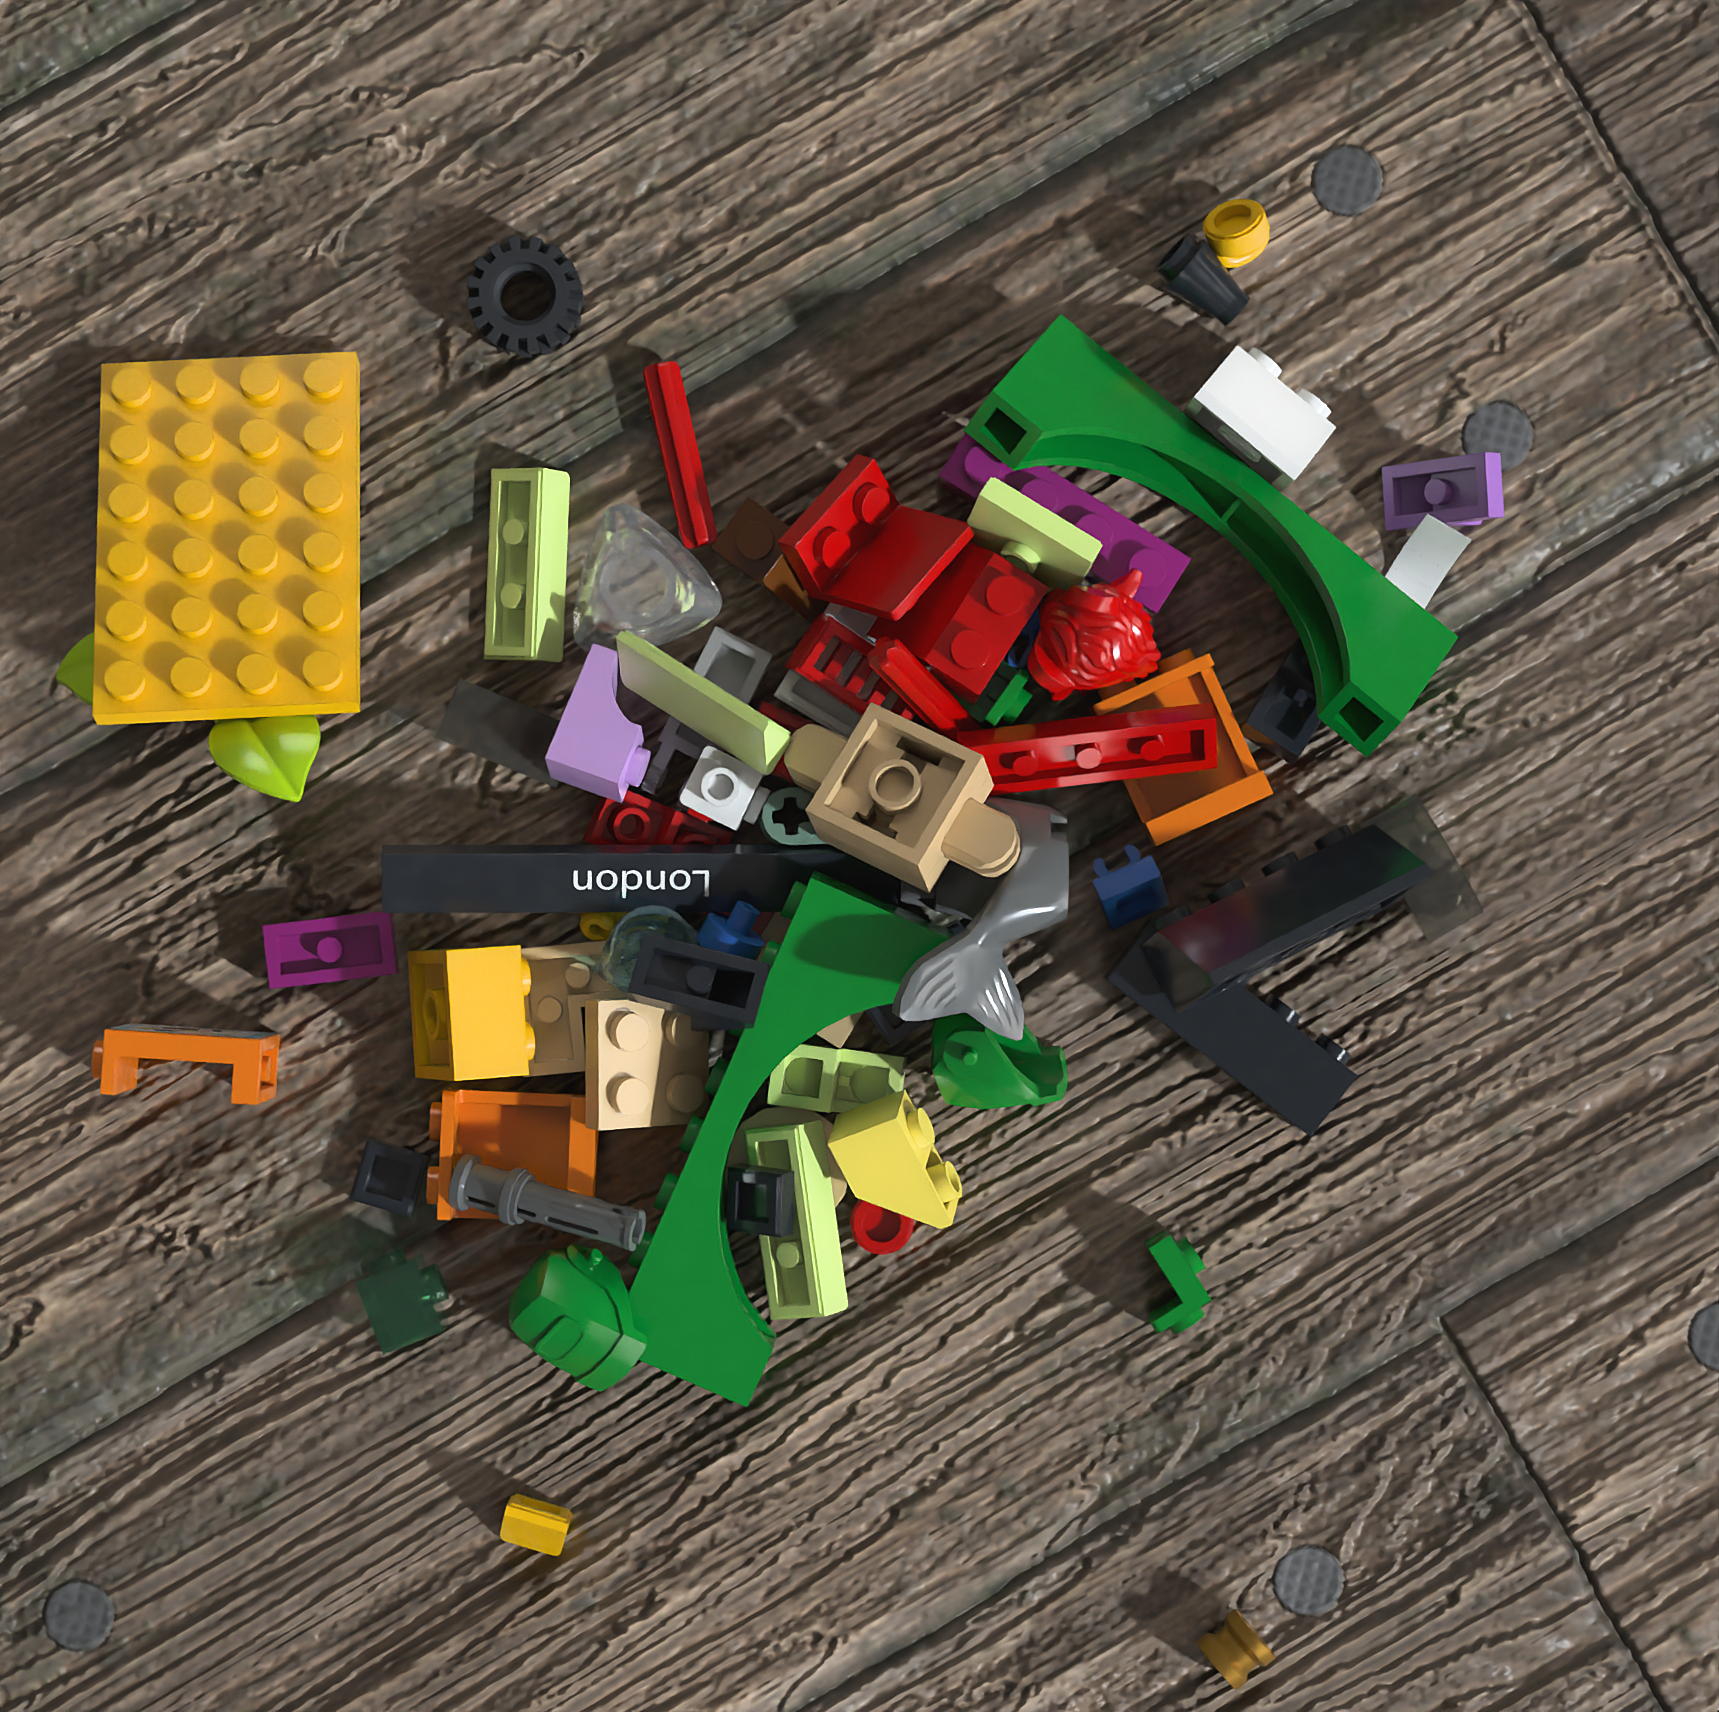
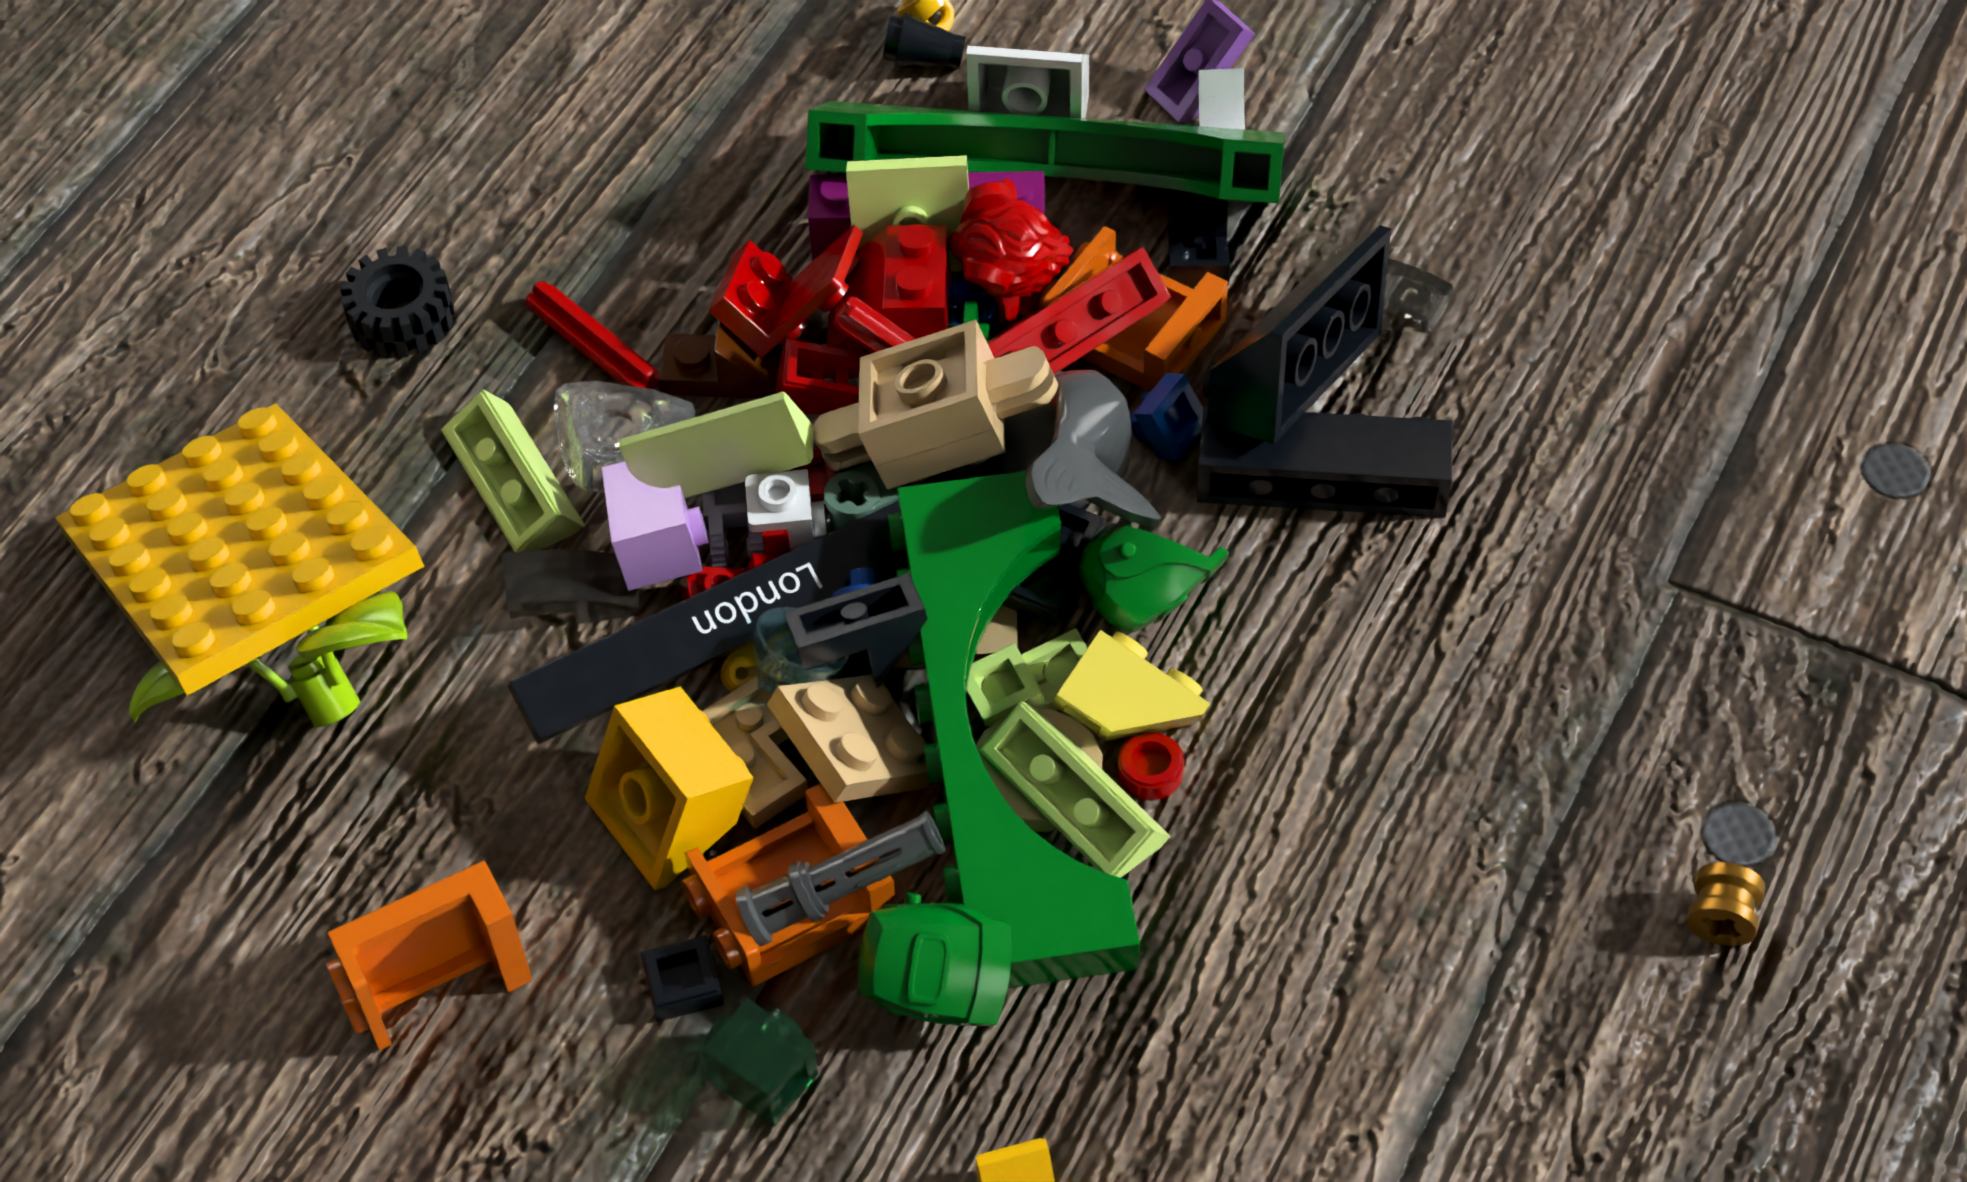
camera: 30 degrees left, 35 degrees down
(330, 949) = (513, 819): magenta plate -> none
(760, 1200) = (1032, 779): black tile -> none
(1180, 1265) = (1432, 652): green bracket -> none

